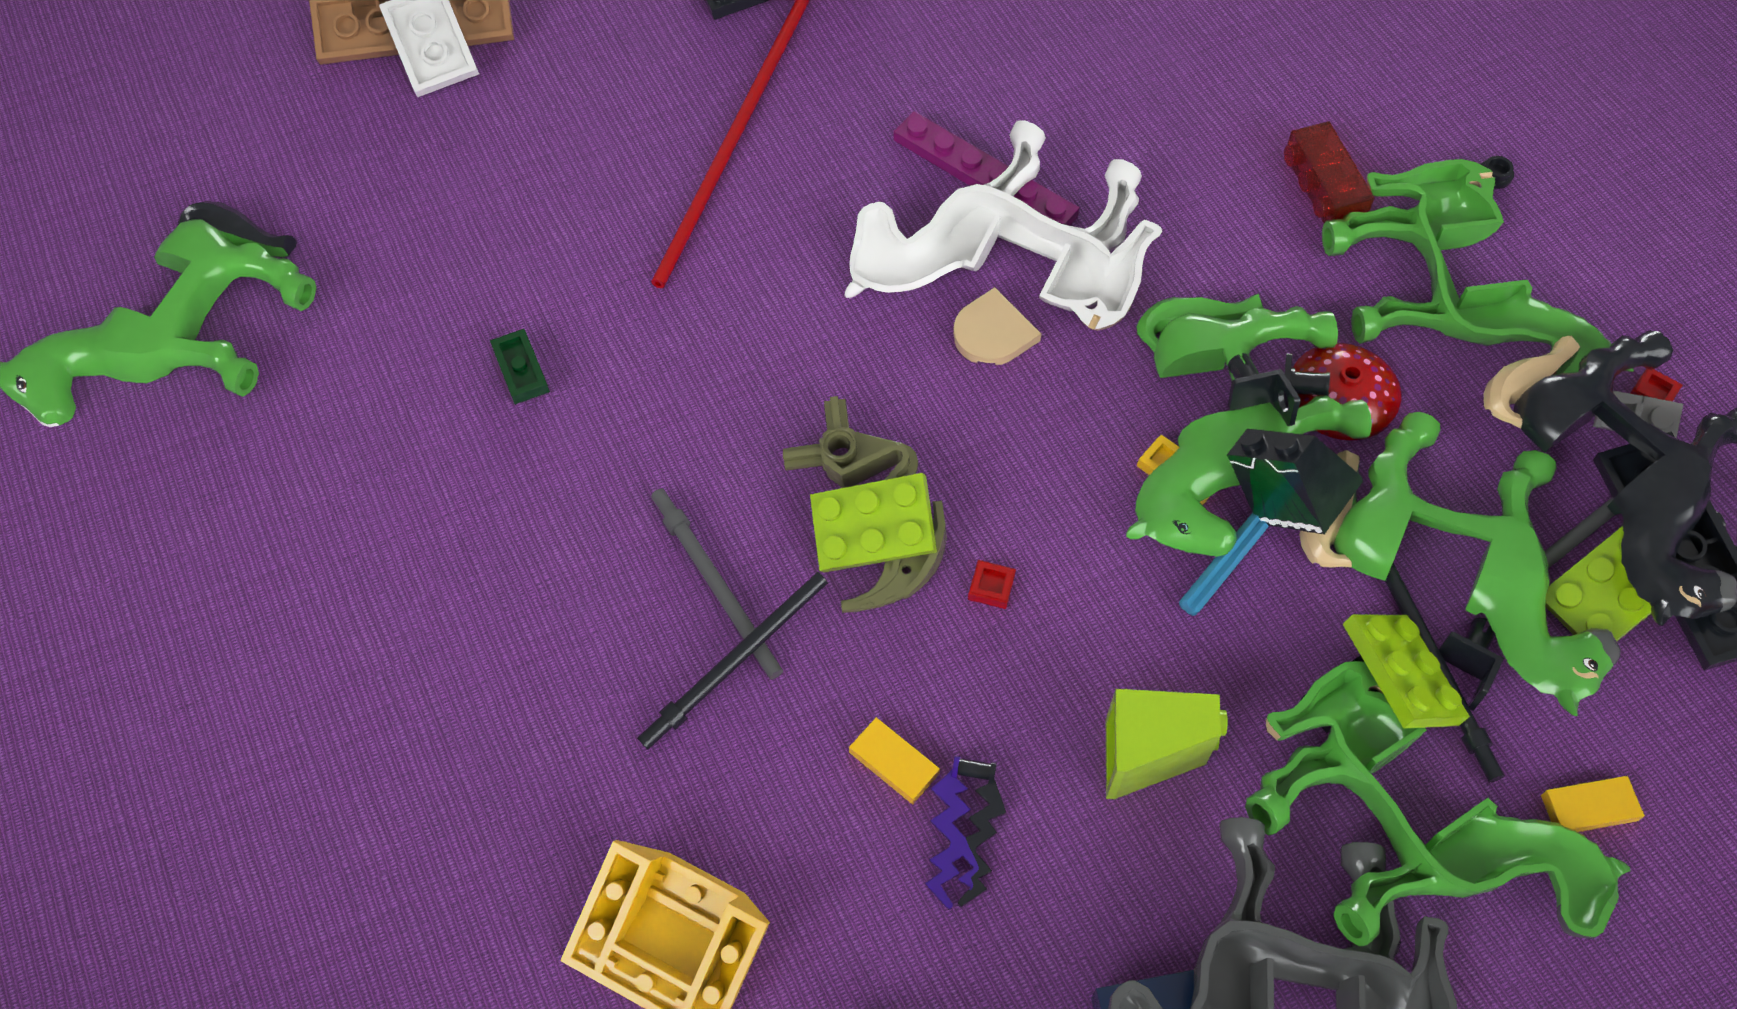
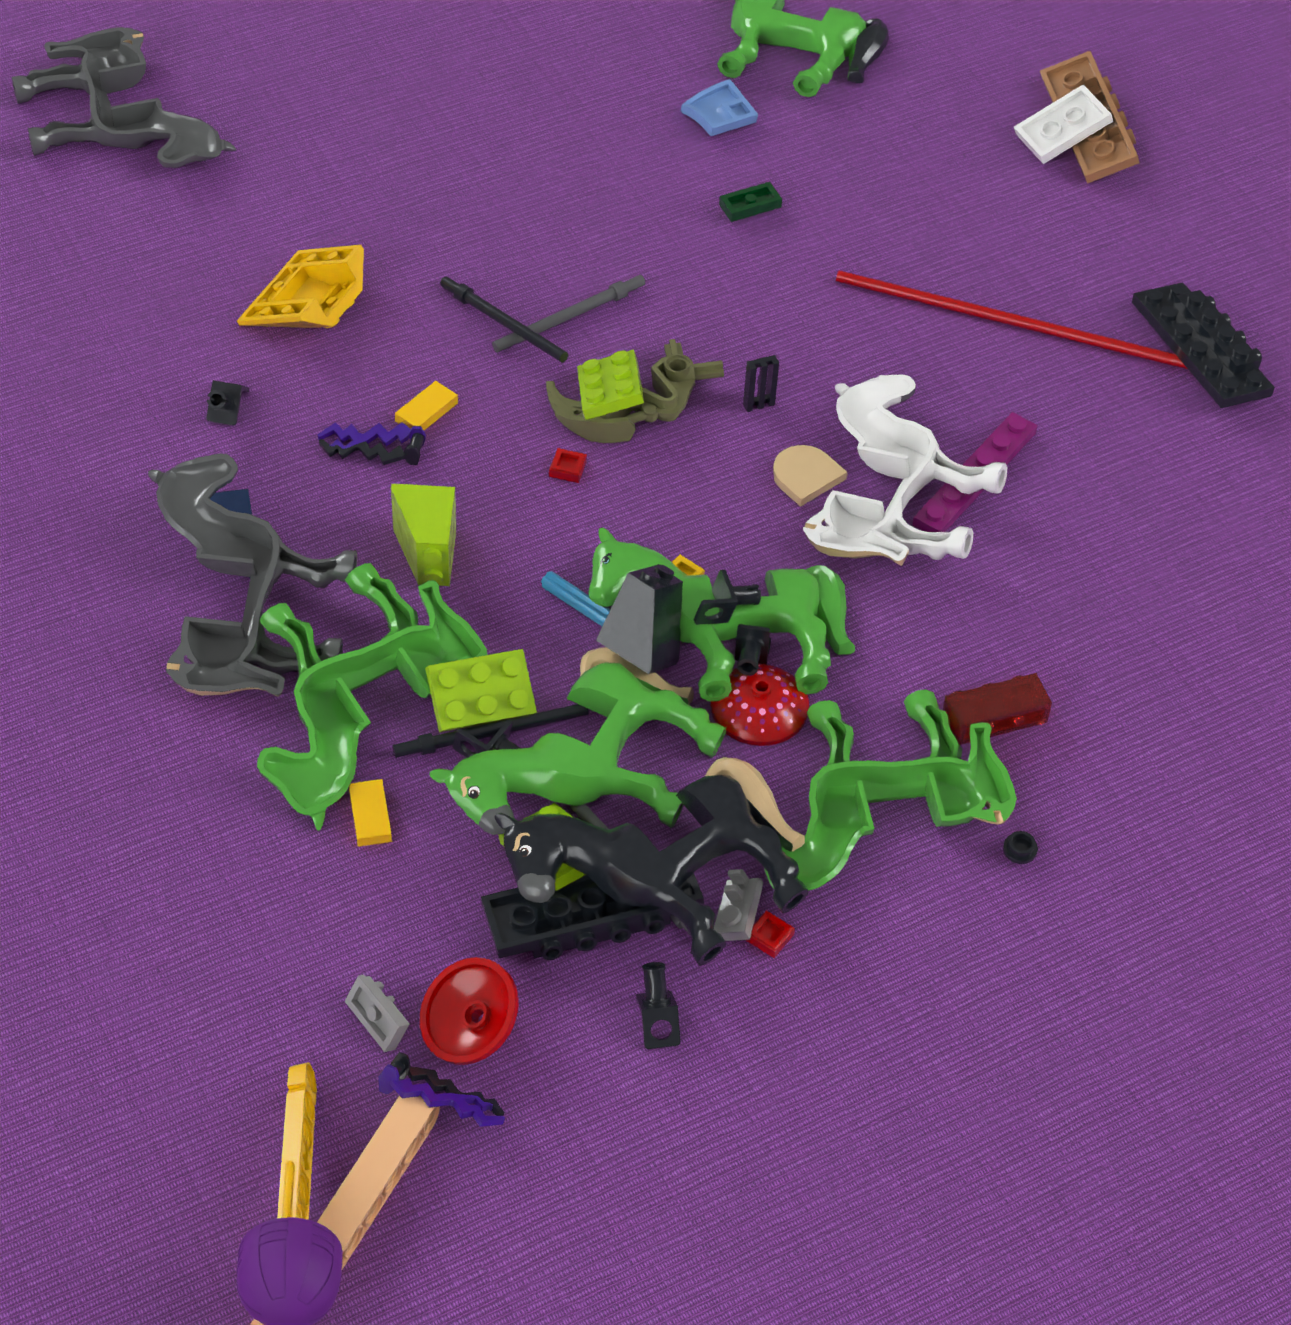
camera: 85 degrees right, 10 degrees down
(330, 395) = (720, 108): none -> medium blue plate
(873, 355) = (767, 364): none -> black tile

